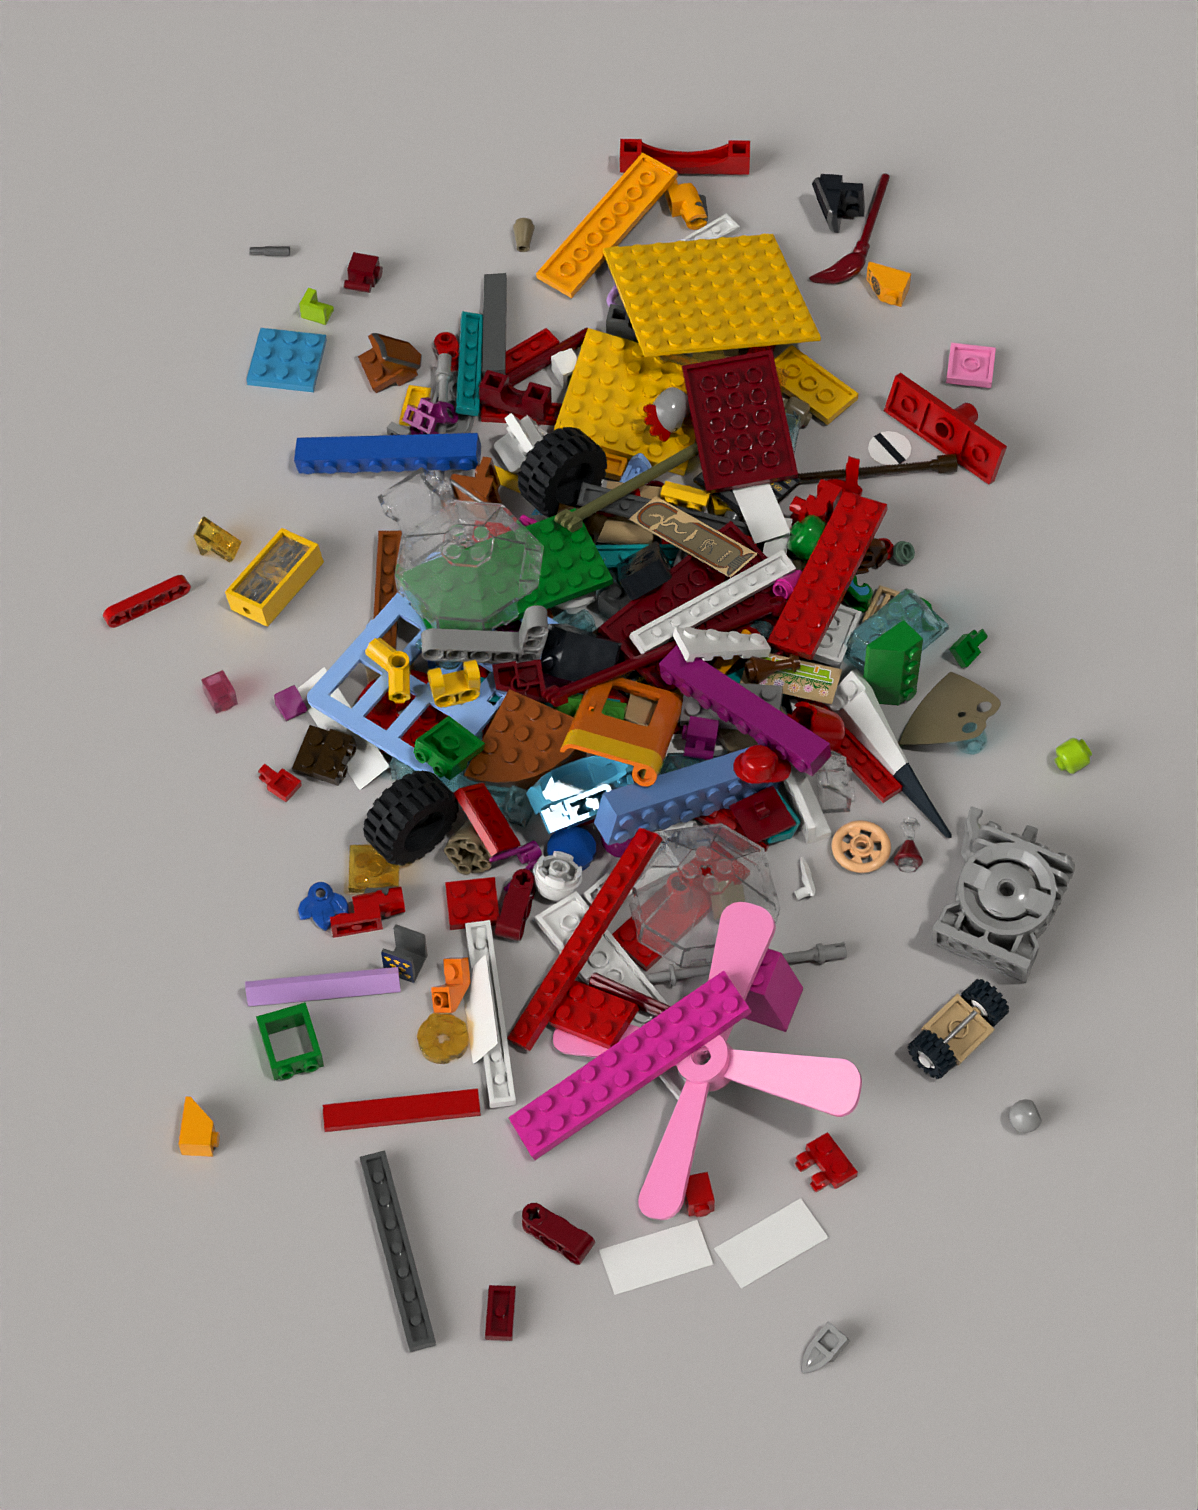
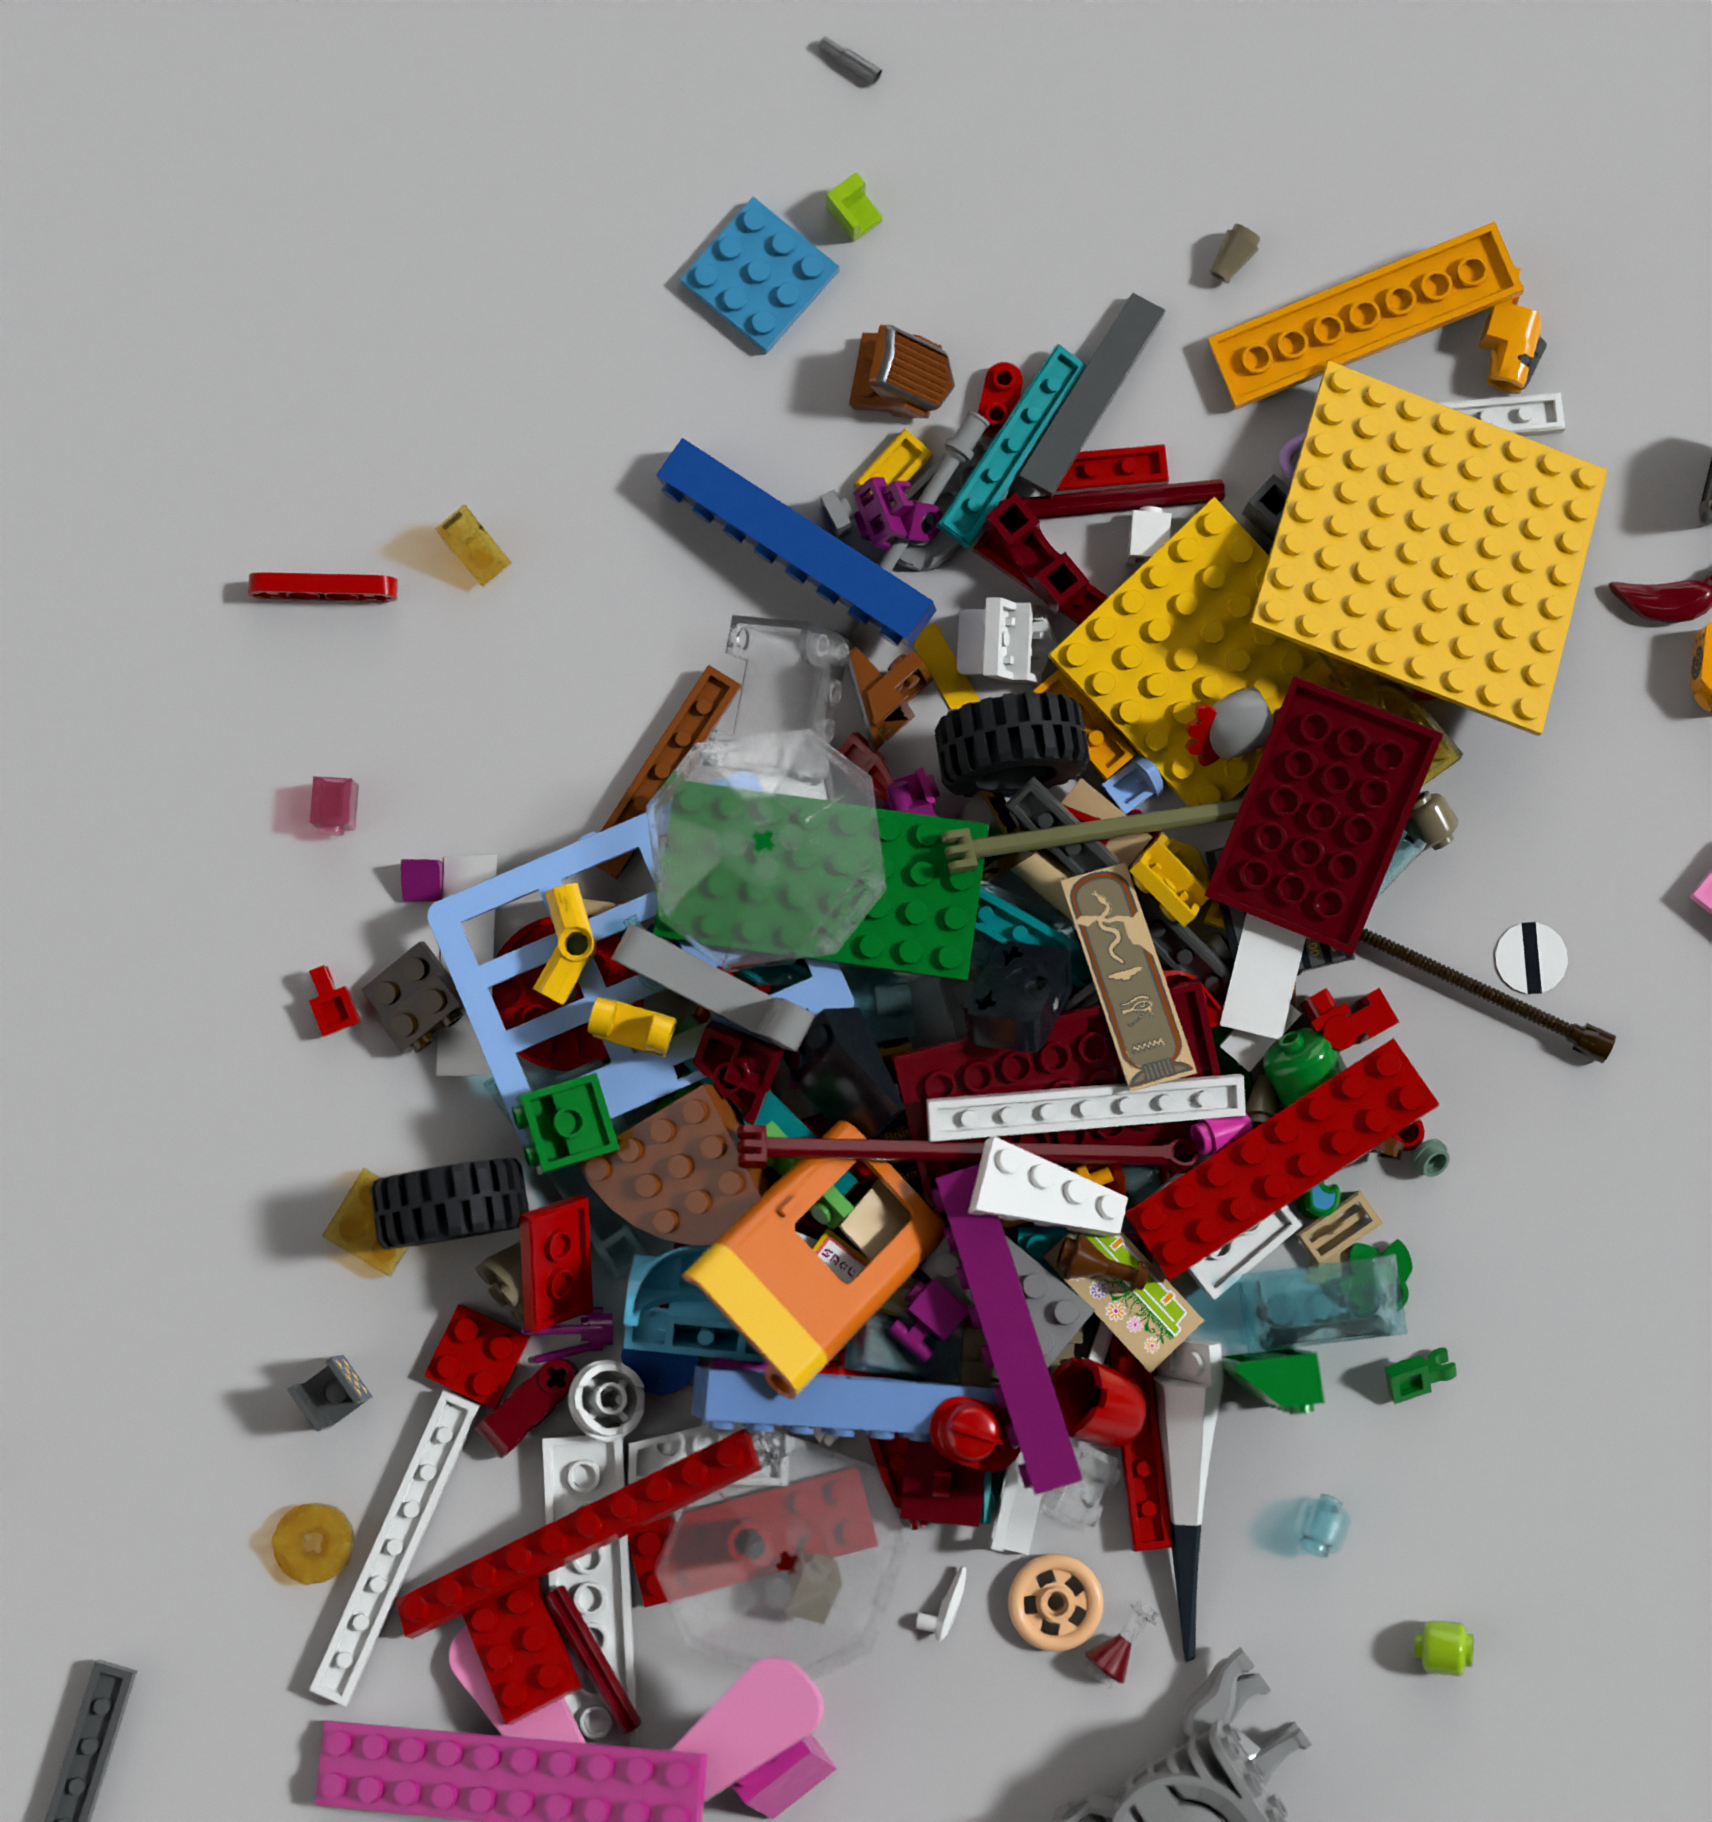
camera: 30 degrees right, 25 degrees up
(274, 577) = (515, 658): brick -> none
(283, 1020) = (110, 1384): green window -> none
(322, 908) = (276, 1242): blue plate -> none
(322, 986) = (198, 1367): lavender tile -> none
(363, 272) = (958, 182): dark red brick -> none
(368, 911) = (332, 1284): red plate -> none
(401, 1110) = (196, 1617): red tile -> none
(457, 978) = (364, 1482): orange slope -> none
(480, 1011) = (377, 1543): white sticker -> none
(726, 159) = (1620, 294): red arch -> none
(815, 385) = (1487, 787): yellow plate -> none
(819, 954) = (888, 1734): light grey bar -> none
(851, 483) = (1429, 993): red piece -> none
(937, 717) = (1292, 1461): dark tan piece -> none
(945, 427) = (1632, 989): red plate -> none

